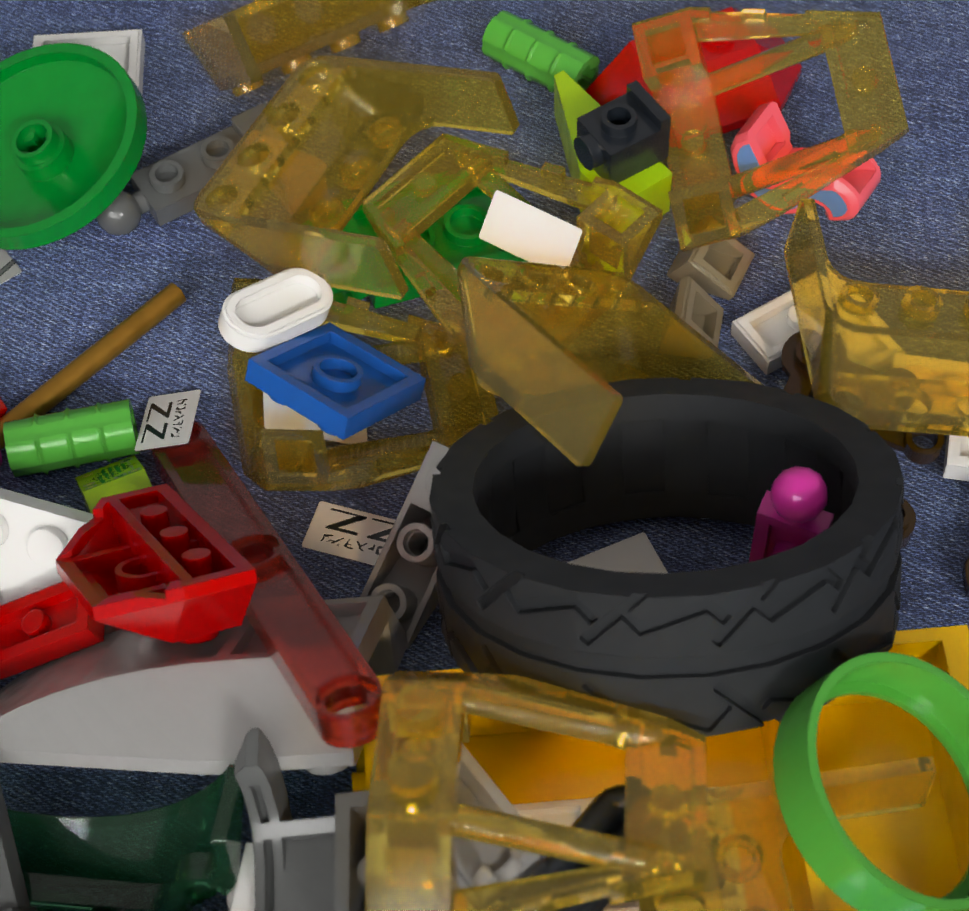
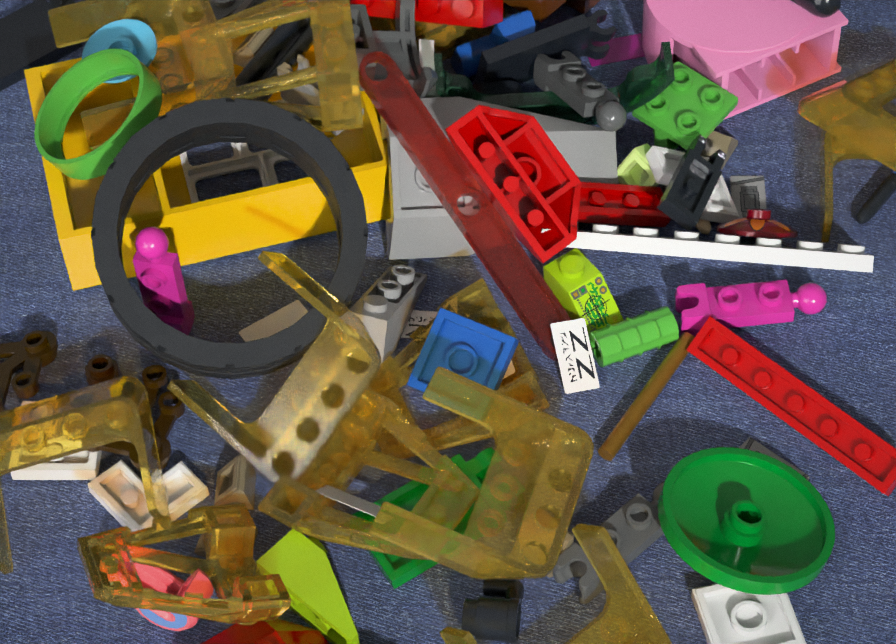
camera: 170 degrees right, 5 degrees down
(275, 310) = (519, 374): white tile -> none
(623, 135) = (296, 556): black brick -> none

